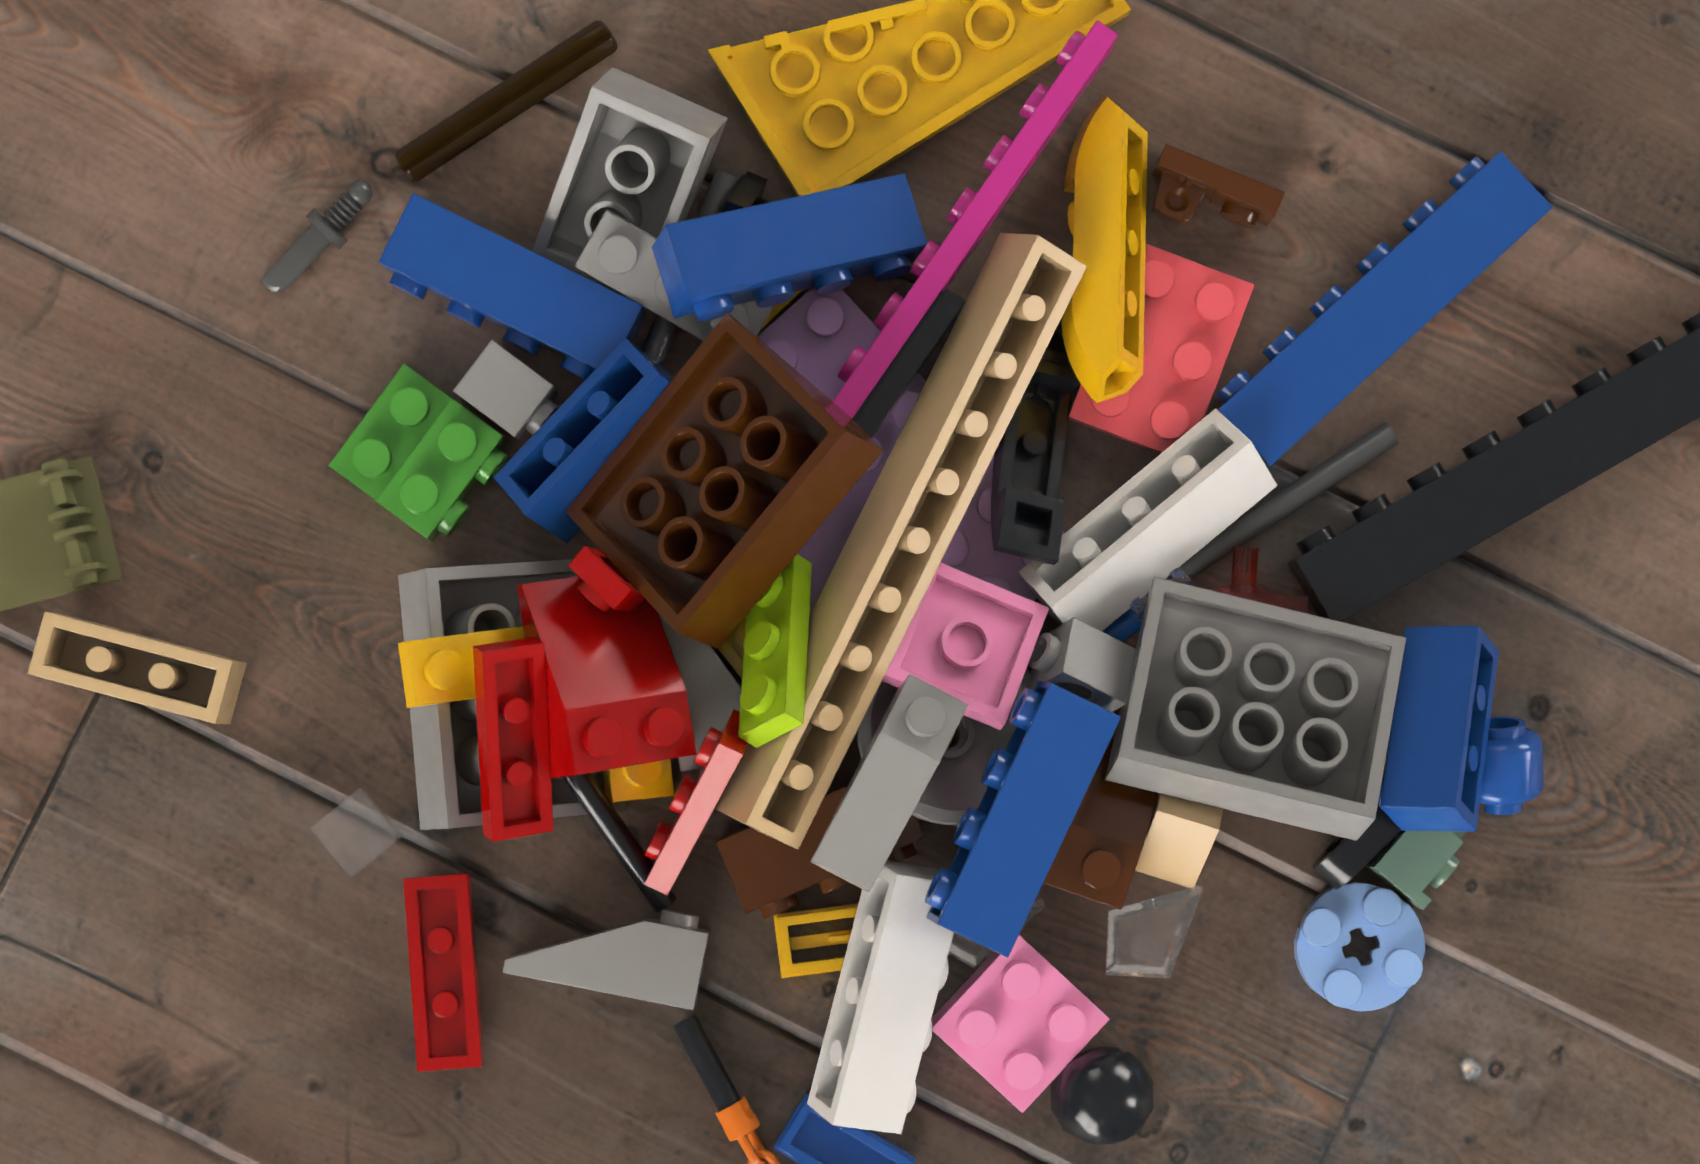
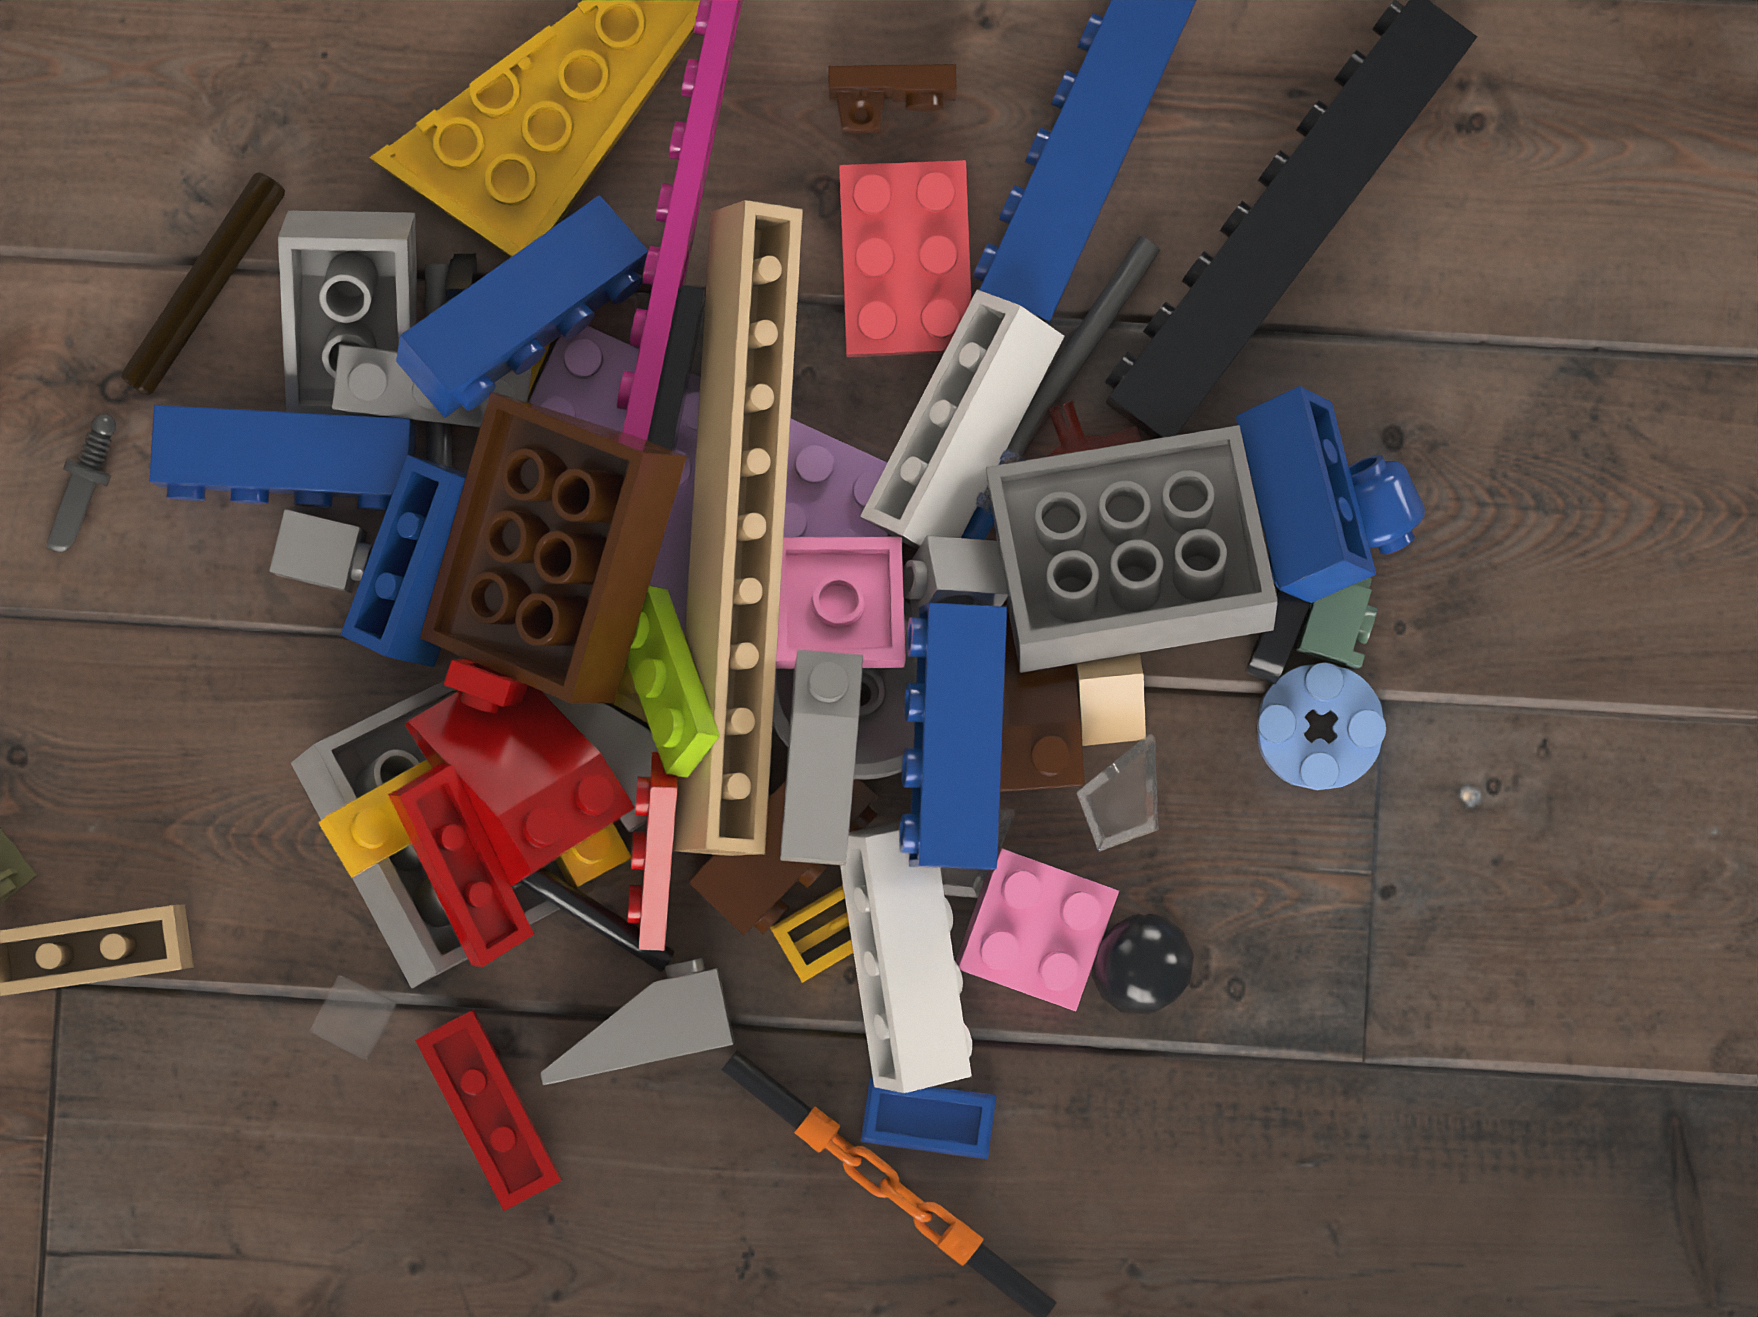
camera: 25 degrees left, 0 degrees up
(421, 454) = (264, 643): bright green plate -> none
(1029, 462) = (825, 399): black slope -> none
(1109, 236) = (812, 171): yellow brick -> none

